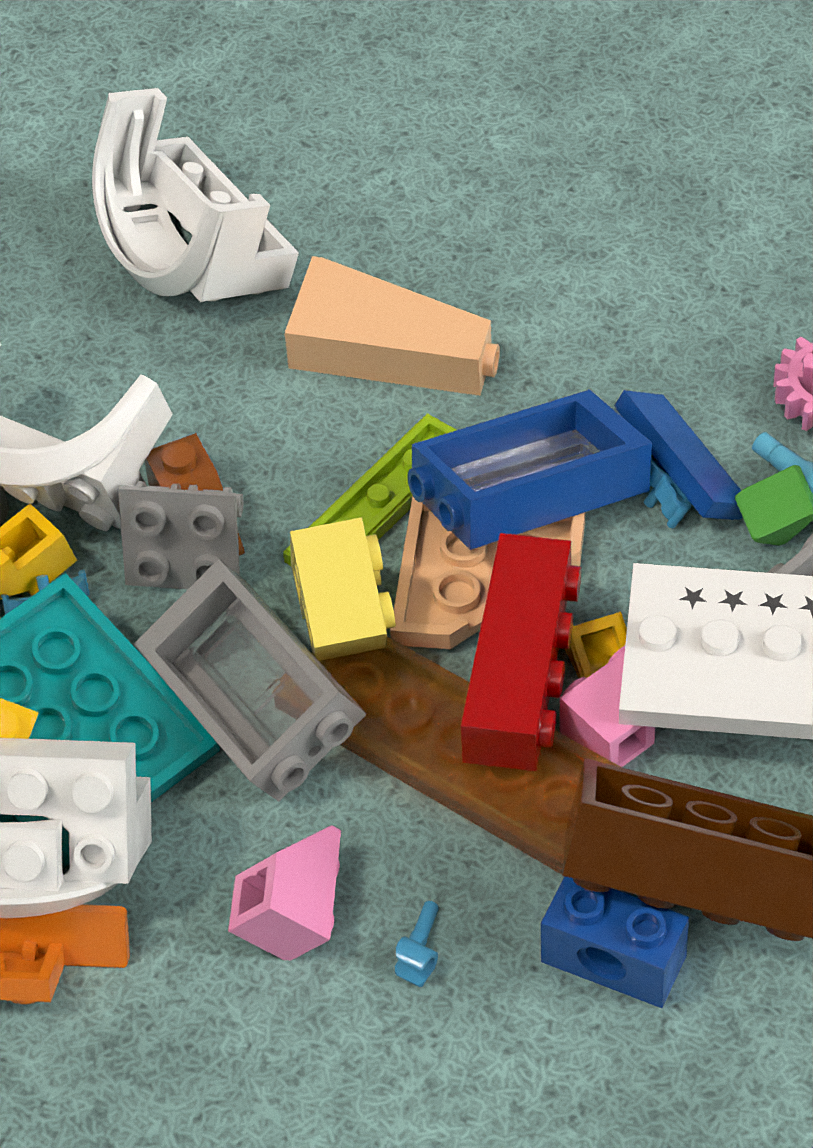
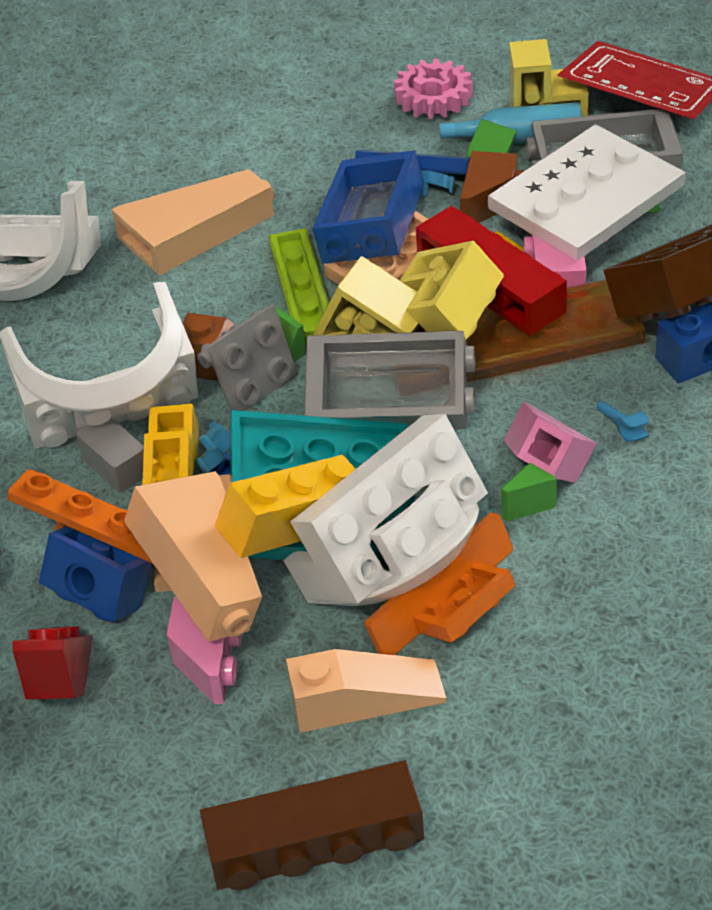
camera: 50 degrees left, 5 degrees down
(200, 921) = (528, 493): none -> bright green slope
(266, 552) = (293, 333): none -> bright green slope
(406, 640) = (451, 287): none -> light yellow brick
(703, 538) = (485, 175): none -> dark orange slope

